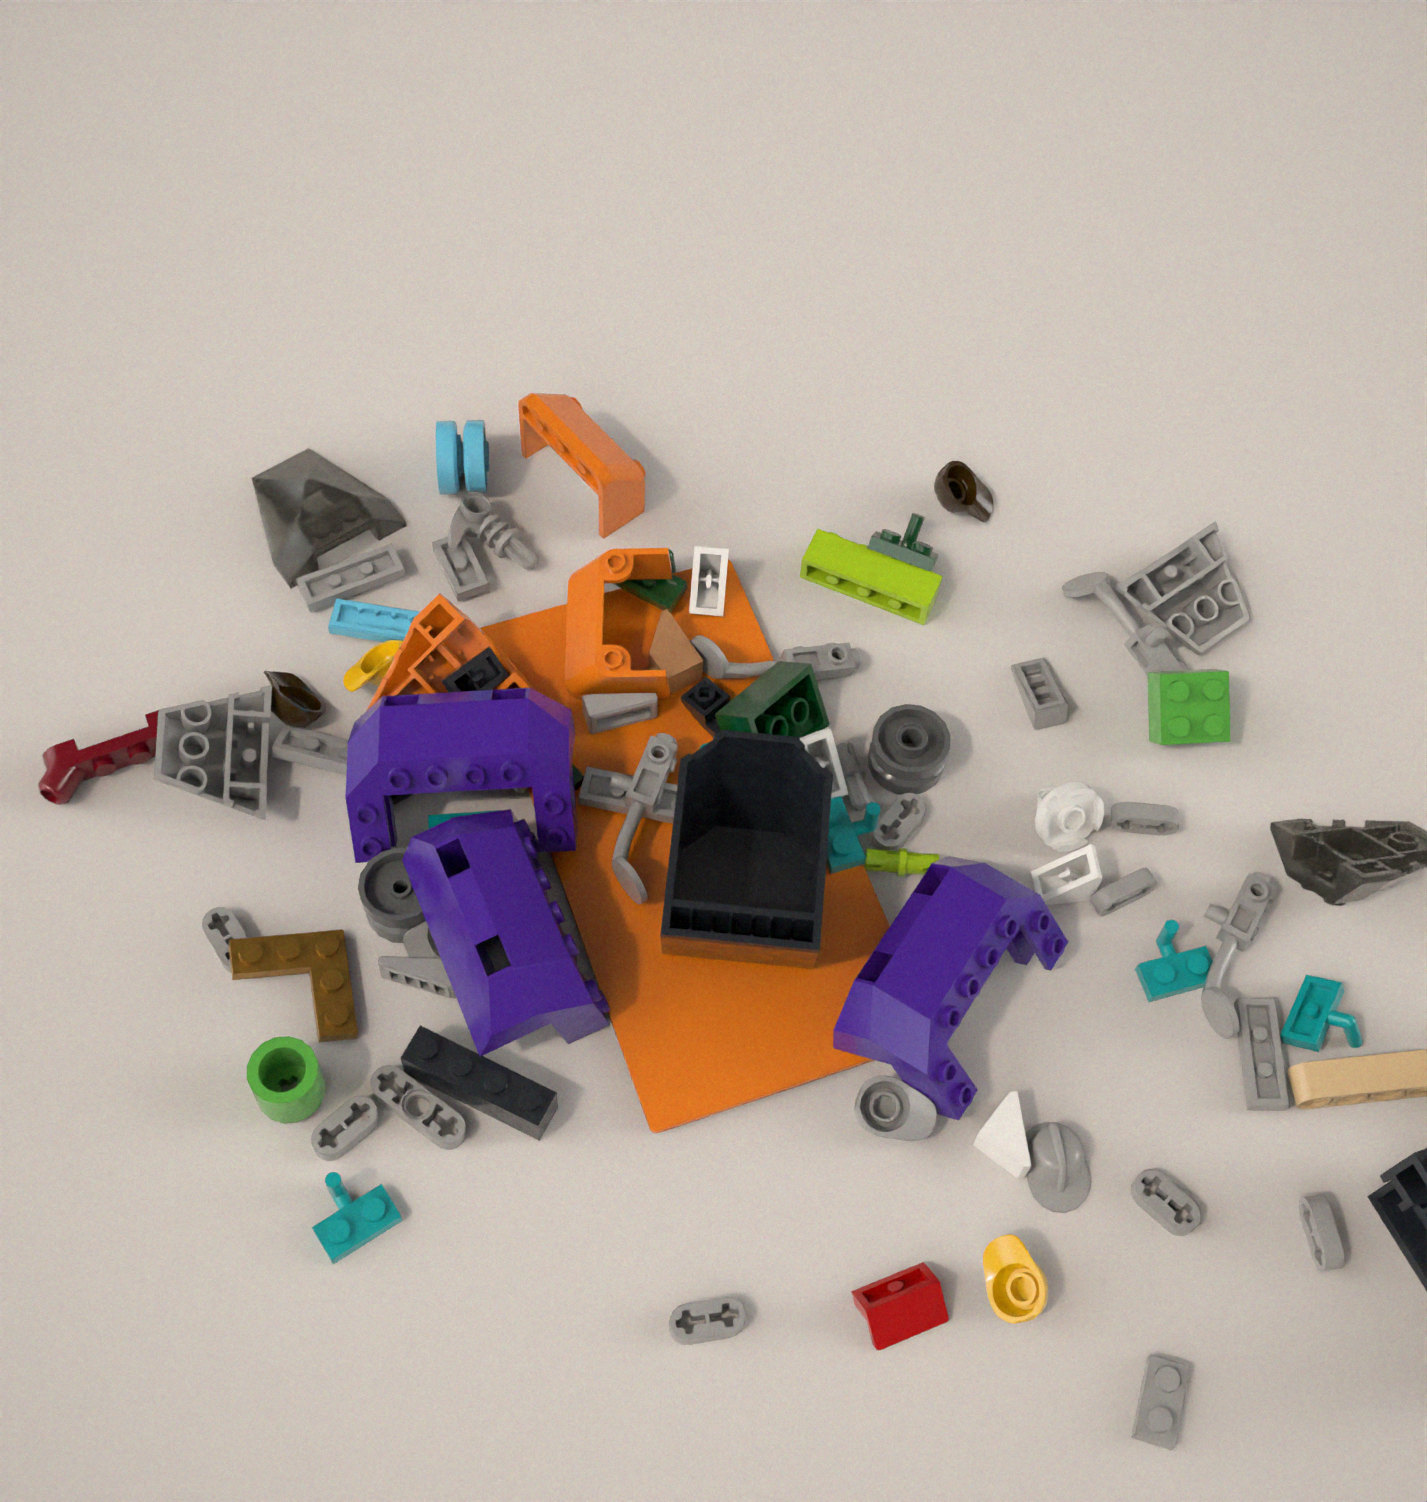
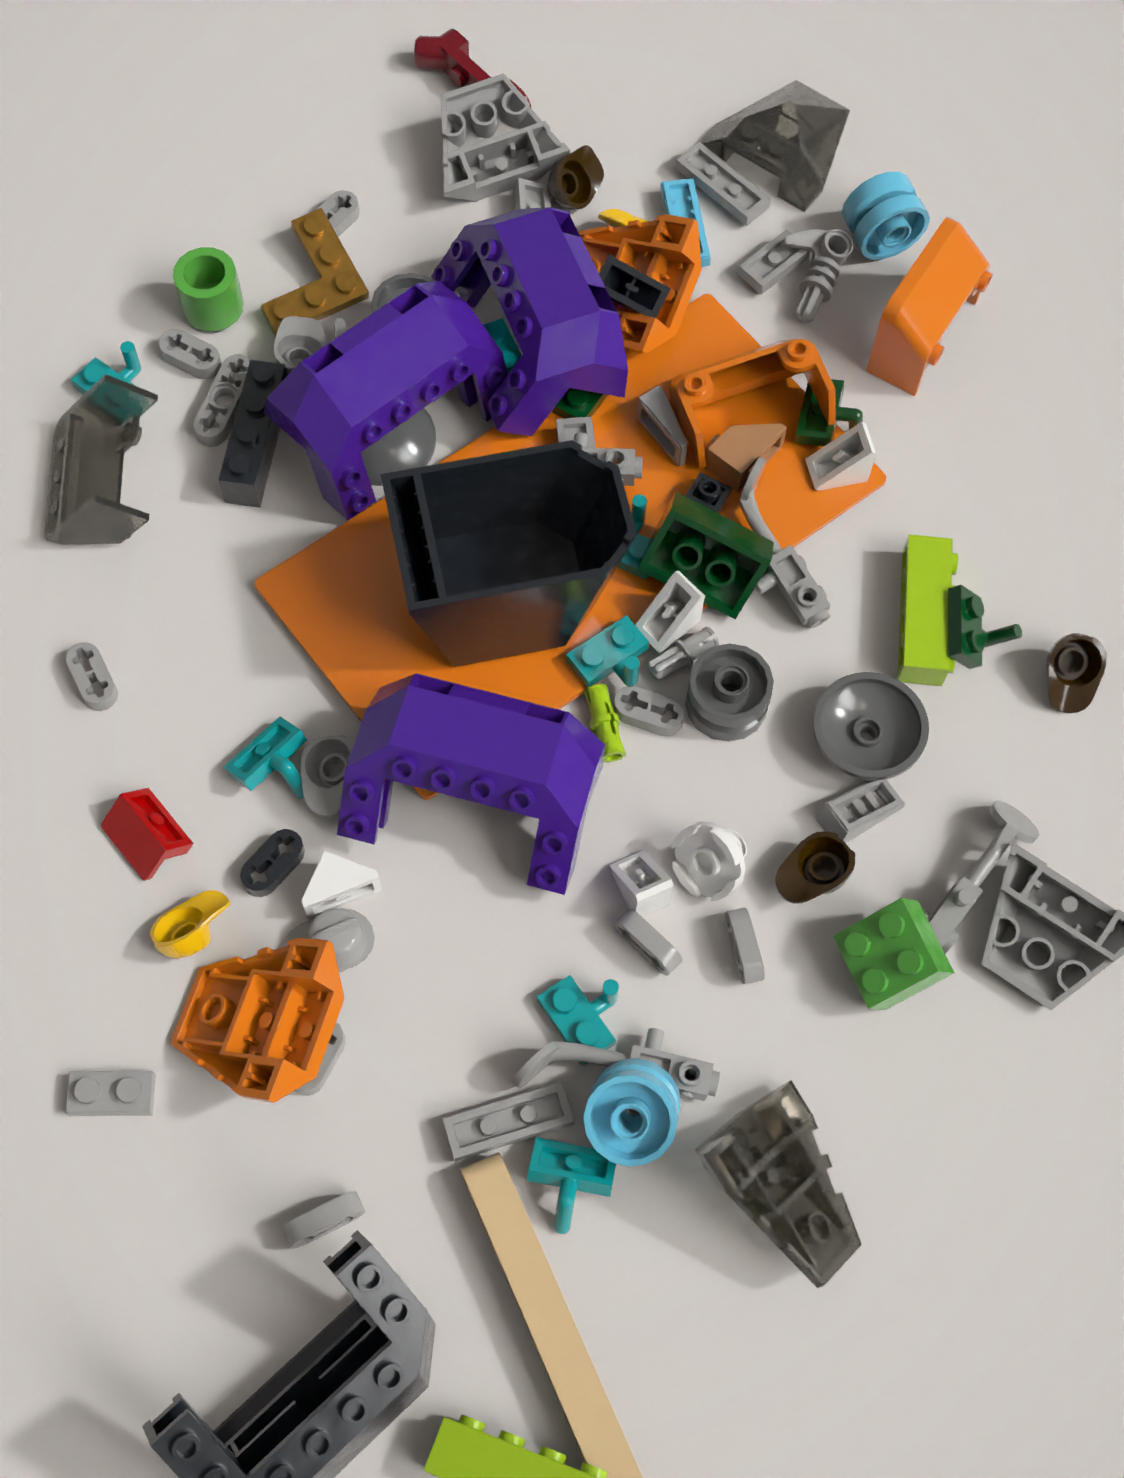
camera: 75 degrees right, 5 degrees up
(392, 1008) = (297, 340): none -> light grey piece
(464, 1272) = (89, 466): none -> clear smoke windscreen
(852, 1164) = (269, 753): none -> teal plate
(969, 1186) = (278, 869): none -> black beam
(979, 638) = (873, 706): none -> dark grey dish
(1094, 738) = (815, 868): none -> dark brown piece
(1136, 1234) = (263, 1018): none -> orange wedge
(1285, 943) = (630, 1136): none -> medium azure wheel

